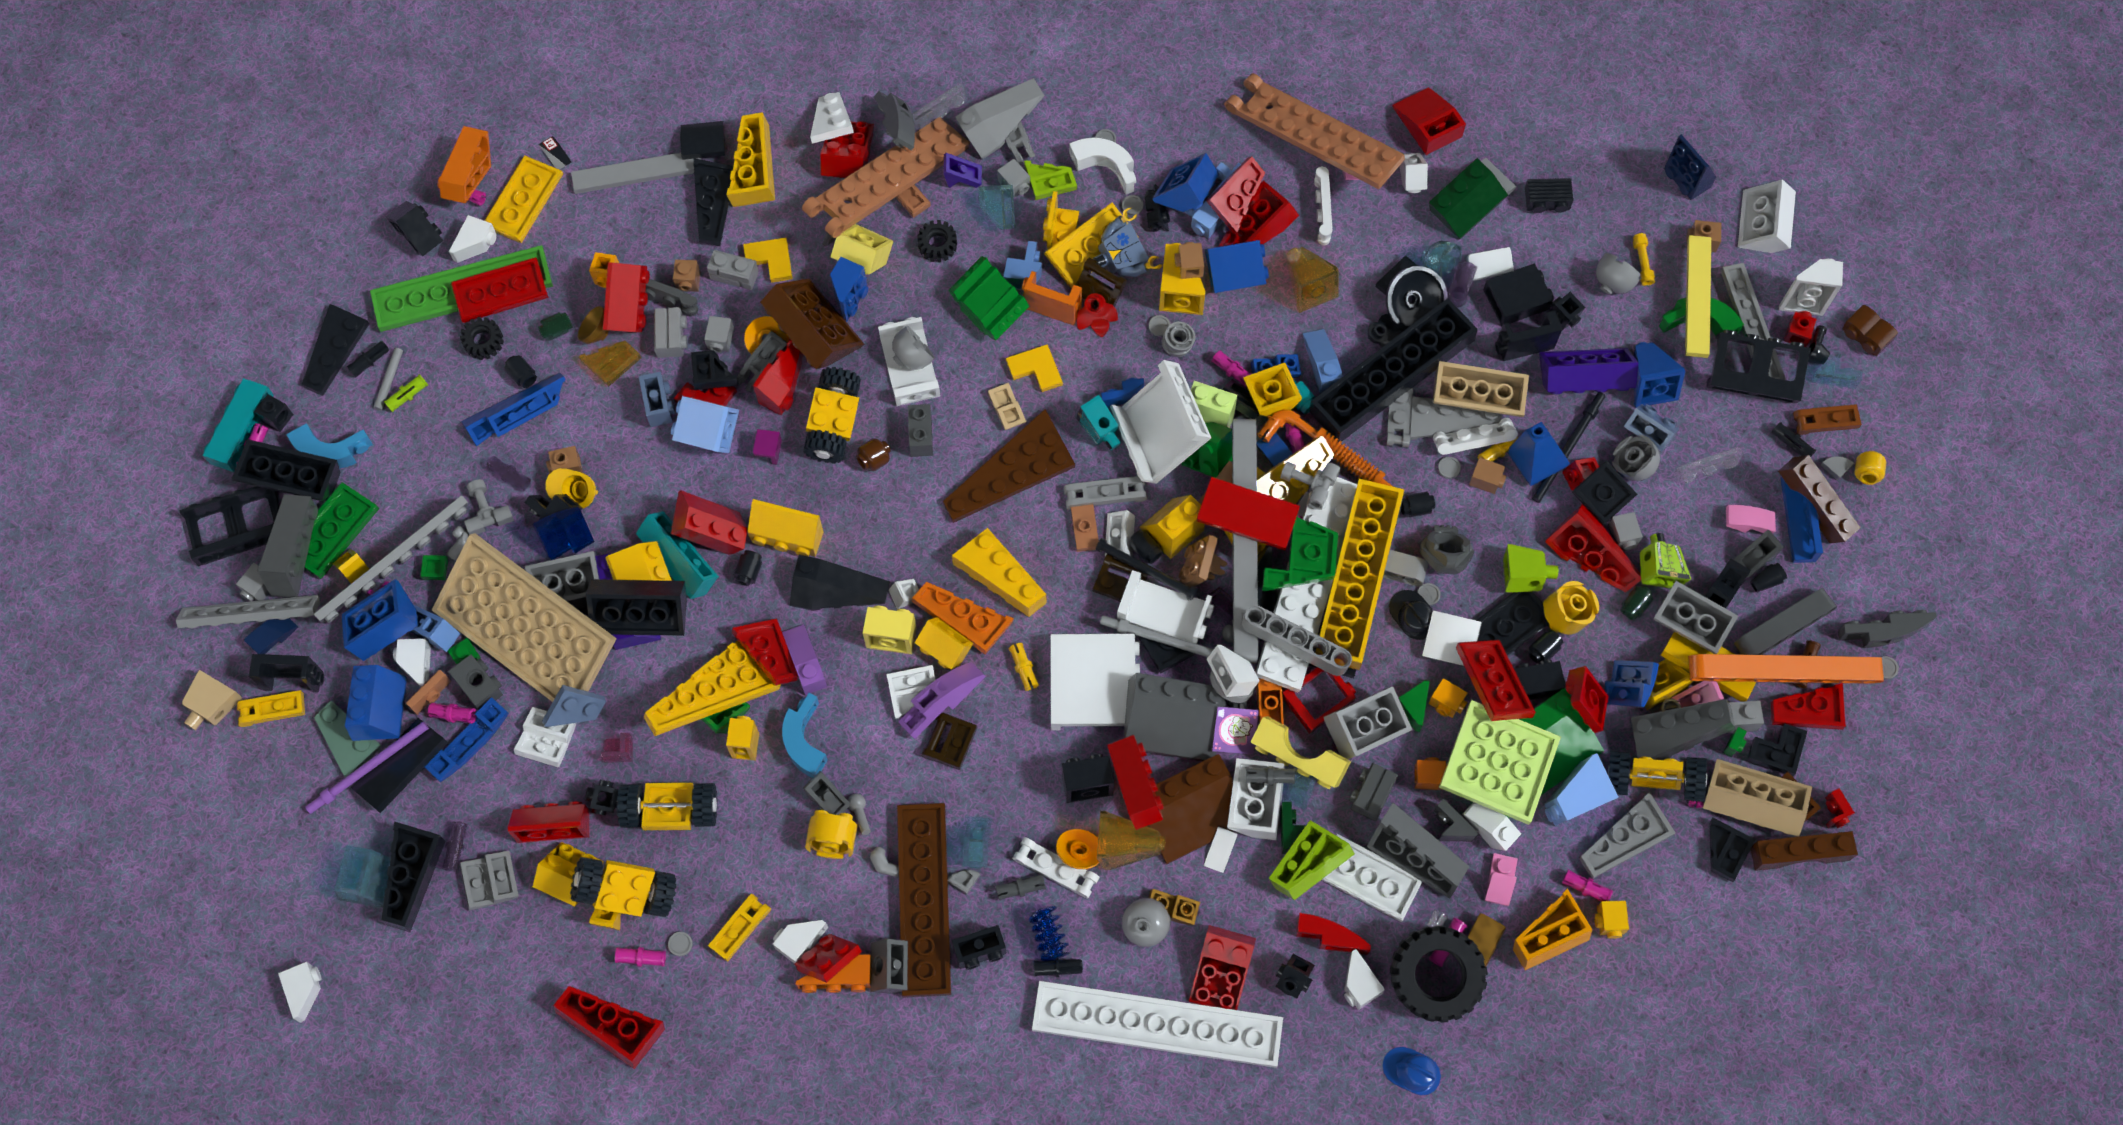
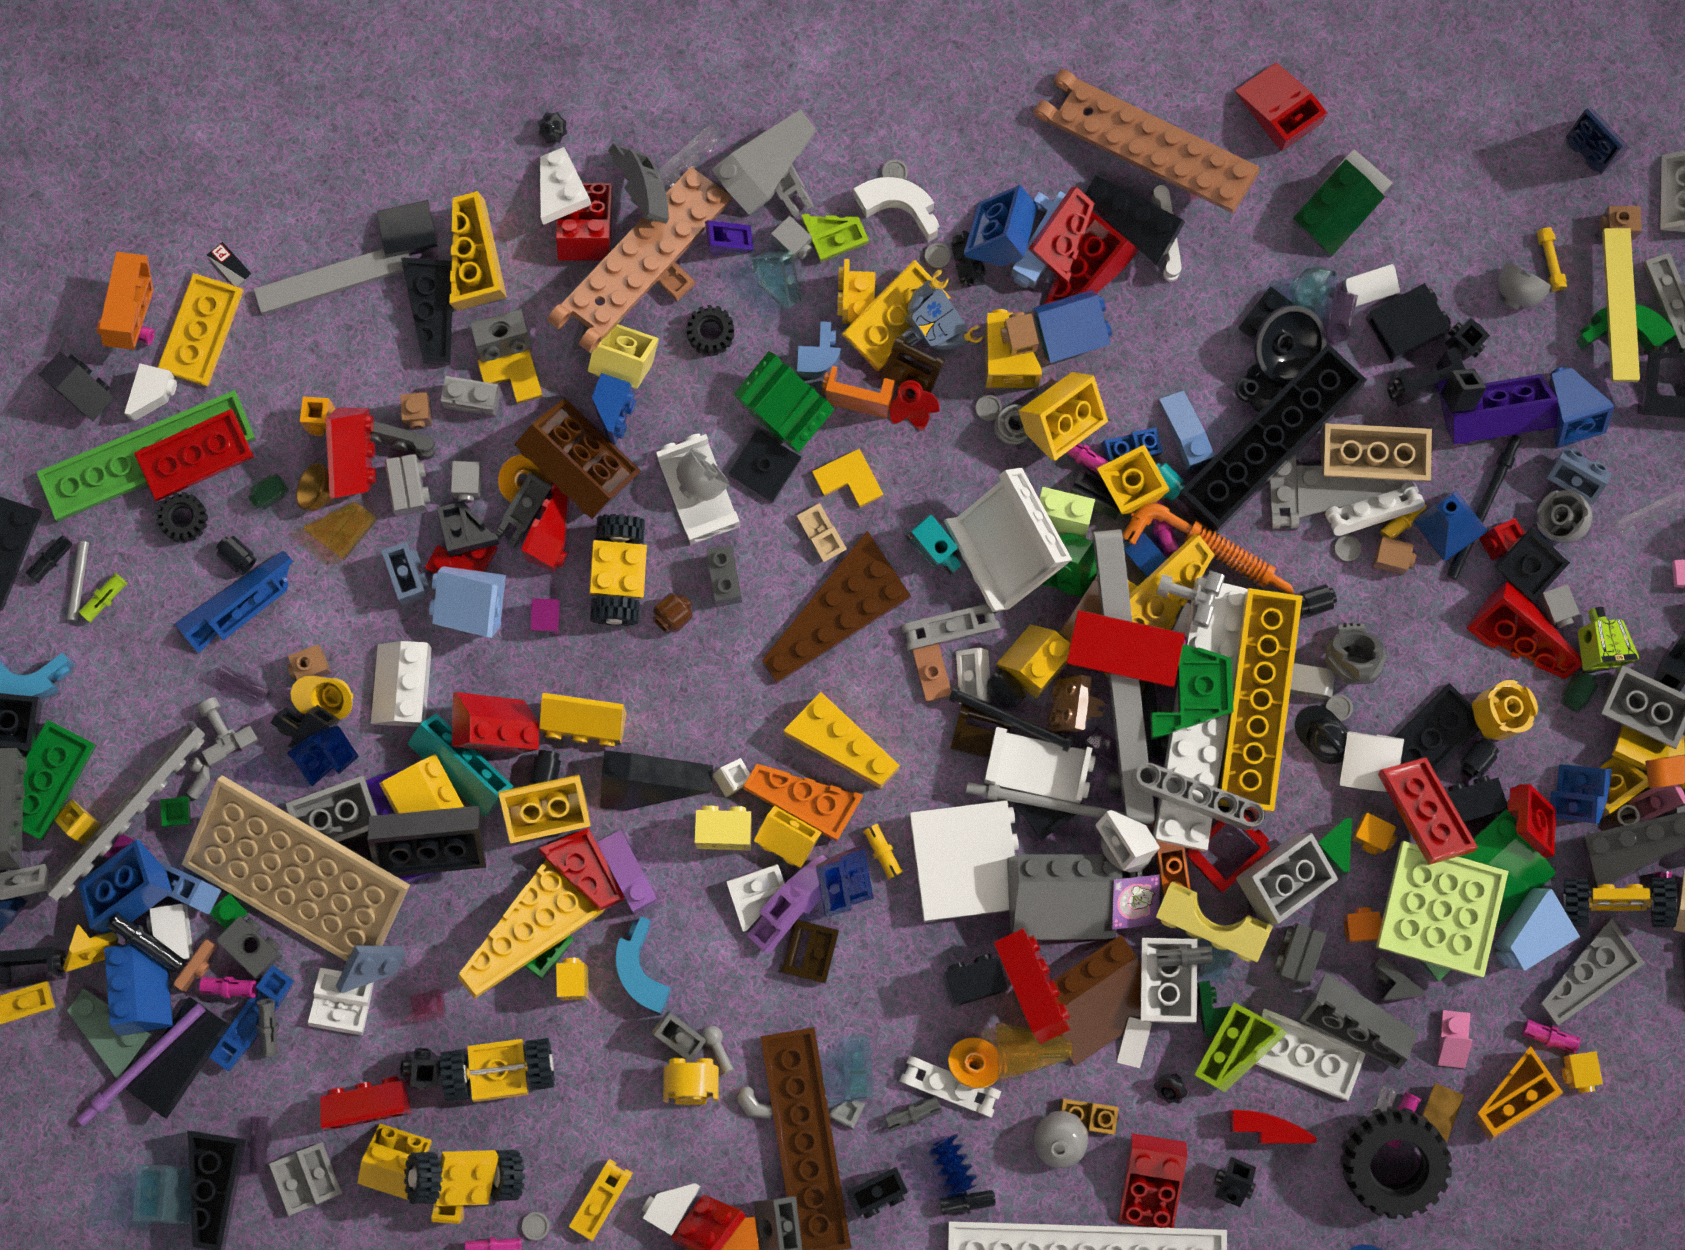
camera: 10 degrees left, 10 degrees up
(338, 667) = (87, 950): none -> yellow slope
(381, 658) = (135, 935): none -> black pin
(479, 748) = (267, 1027): none -> dark grey pin
(639, 486) = (401, 683): none -> white slope
(741, 594) = (544, 808): none -> yellow slope
(765, 226) = (501, 335): none -> dark grey brick
(832, 76) = (552, 127): none -> black piece
(967, 350) = (765, 466): none -> black plate
(986, 683) = (844, 881): none -> clear blue slope
(1128, 389) = (963, 496): blue slope -> none
(1221, 333) = (1064, 414): none -> yellow slope
(1247, 891) = (1170, 1088): none -> black piece
(1305, 193) = (1138, 220): none -> black wing
(1311, 278) = (1161, 329): clear yellow slope -> none
(1360, 982) = (1308, 1179): white slope -> none
(1414, 173) = (1272, 179): white slope -> none
(1492, 826) = (1439, 982): white slope -> none
(1526, 569) = (1449, 667): lime torso -> none
(1549, 194) = (1433, 189): black brick -> none
(1558, 345) = (1463, 390): none -> black brick

